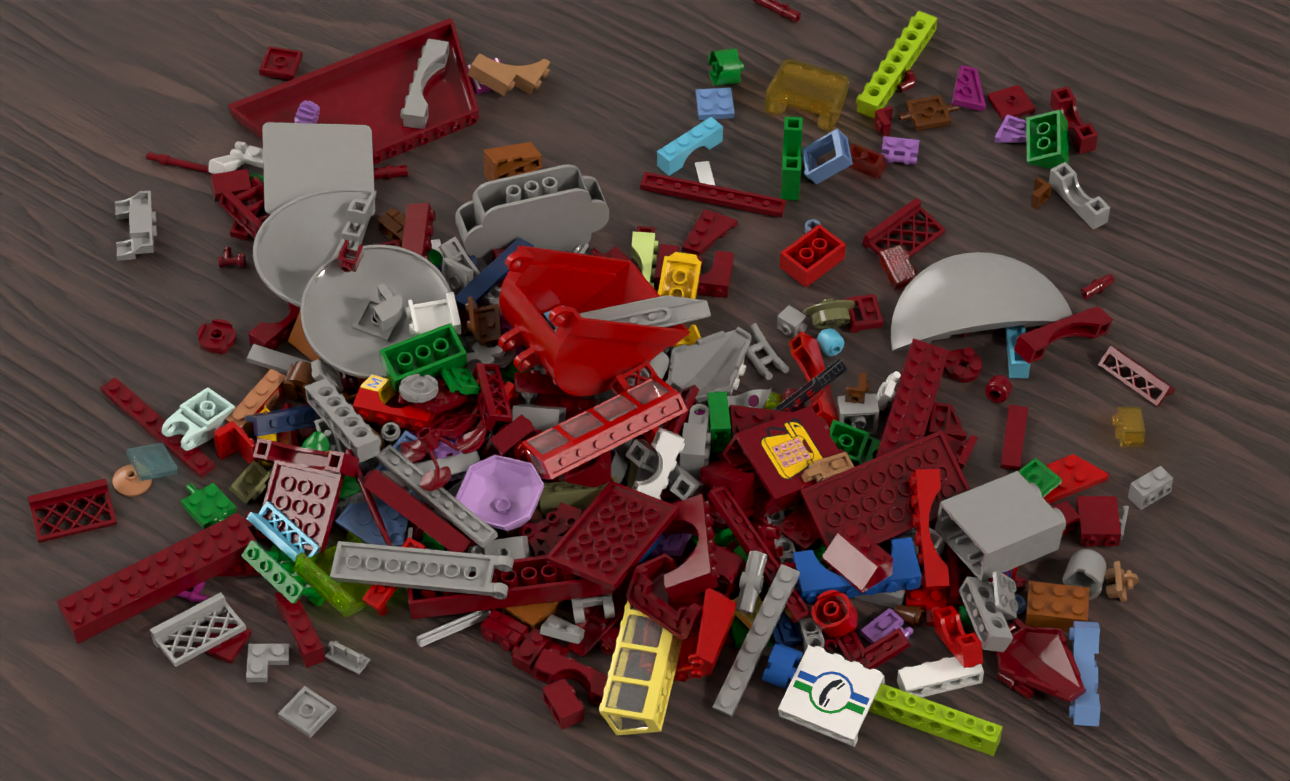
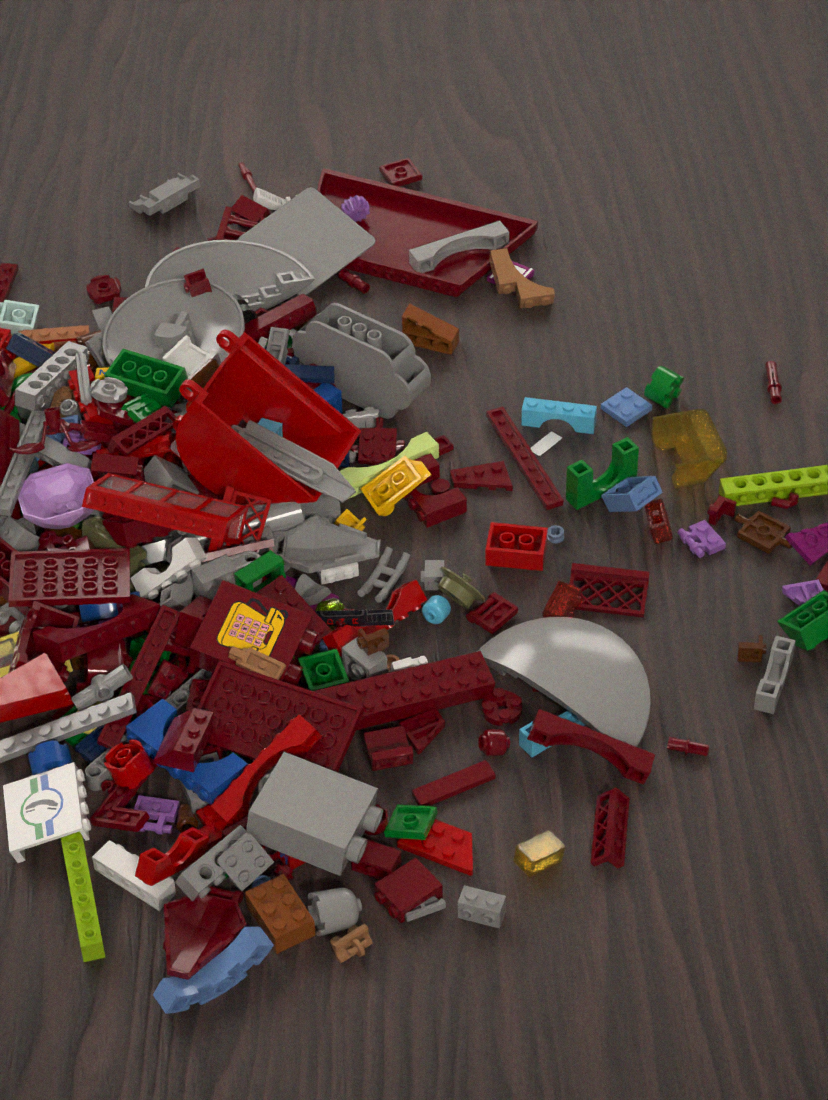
camera: 55 degrees right, 5 degrees down
(377, 398) = (83, 378): none -> light grey axle

